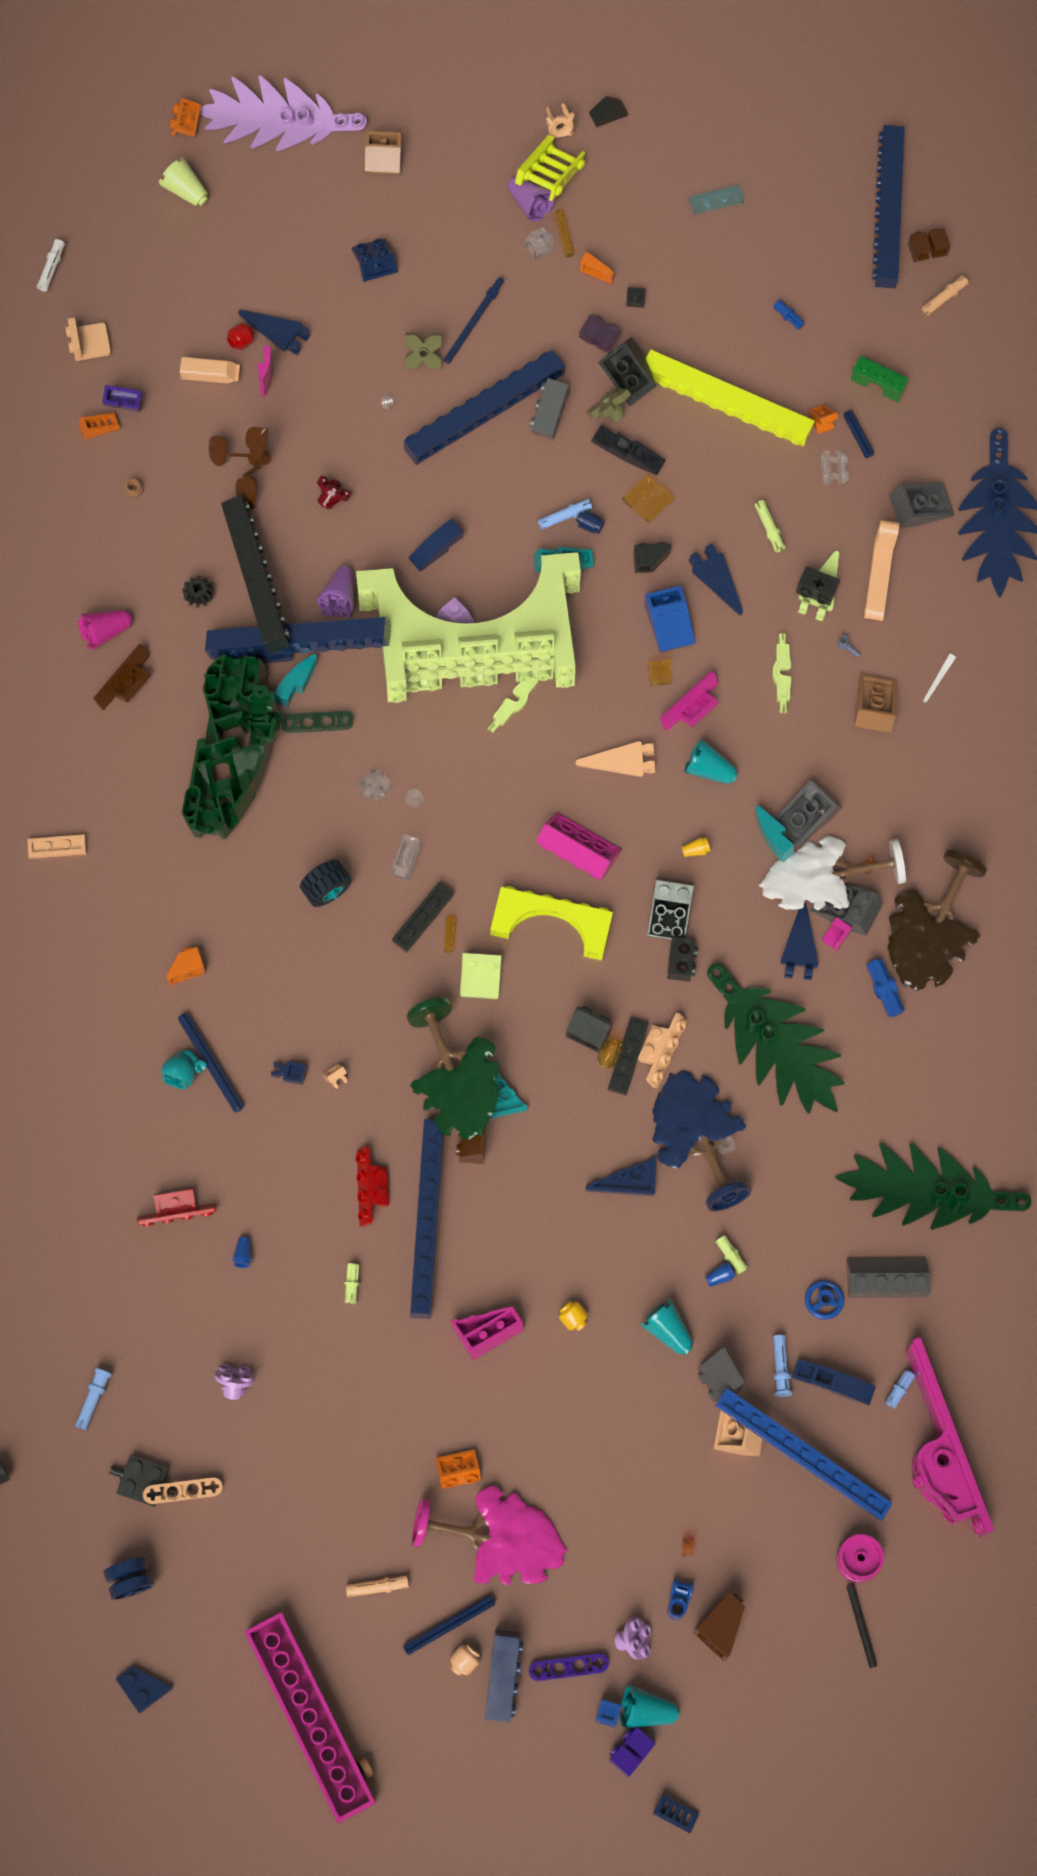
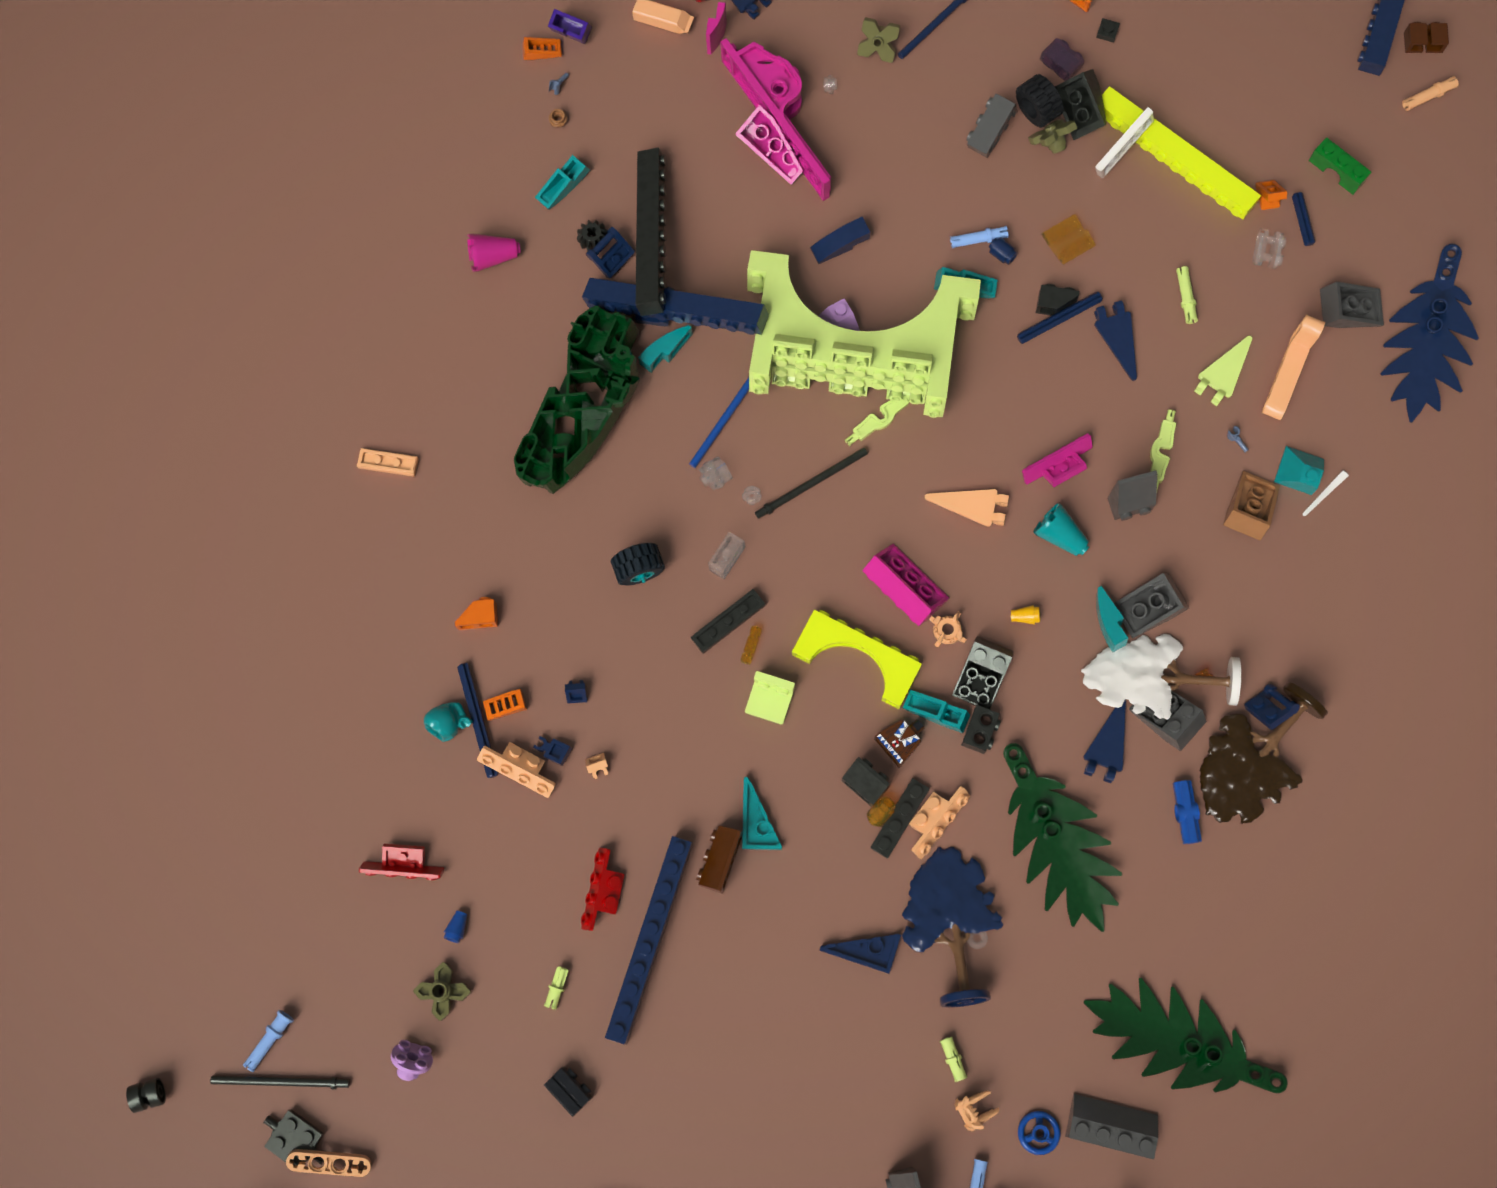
camera: 25 degrees right, 5 degrees up
(123, 456) = (555, 84): none -> sand blue hand
(125, 680) = (498, 309): reddish brown bracket -> none
(154, 547) = (562, 182): none -> teal slope
(165, 1421) = (334, 1082): none -> pearl dark grey bar
(225, 605) = (614, 257): none -> dark blue plate
(229, 1036) = (509, 695): none -> orange slope
(247, 1323) = (441, 1004): none -> olive plant
(256, 441) = (684, 96): reddish brown plant -> none
(262, 1094) = (519, 766): none -> light nougat bracket
(297, 1014) = (576, 692): none -> dark blue tile
(317, 726) = (676, 391): clear green beam -> none
(331, 492) = (749, 164): dark red plate -> none
(338, 594) = (729, 269): medium lavender cone -> none
(340, 423) = (778, 91): none -> dark pink piece
(345, 468) = (768, 141): none -> dark pink wedge
(368, 736) = (720, 424): none -> blue bar
(388, 1370) = (568, 1090): none -> black brick
(433, 806) = (768, 508): none -> pearl dark grey bar
(462, 1092) = (716, 819): dark green plant -> none
(483, 407) = (924, 110): dark blue brick -> none
(487, 1331) = (678, 1076): dark pink wedge -> none
(573, 1315) = (772, 1082): yellow head -> none
(589, 376) = (1039, 100): none -> black tyre
(610, 986) = (900, 740): none -> torso
(622, 884) = (939, 622): none -> light nougat piece
(628, 451) = (1060, 186): black slope -> none
(637, 952) = (936, 711): none -> teal slope
(658, 572) = (1059, 317): none -> dark blue axle
(659, 672) = (1034, 422): clear yellow panel -> none
(669, 618) = (1058, 368): blue slope -> none
(669, 1328) = (867, 1122): teal cone -> none
(678, 399) = (1125, 143): none -> white tile
(720, 1275) = (936, 1078): blue cone -> none
(754, 1288) = (968, 1113): none -> light nougat piece
(767, 717) = (1133, 496): none -> dark grey slope
(788, 314) = (1261, 79): blue axle -> none
(817, 586) = (1221, 369): pearl dark grey brick -> none
(836, 934) = (1149, 741): dark pink panel -> none
(911, 662) = (1300, 470): none -> teal slope
(935, 882) = (1268, 712): none -> dark blue plate

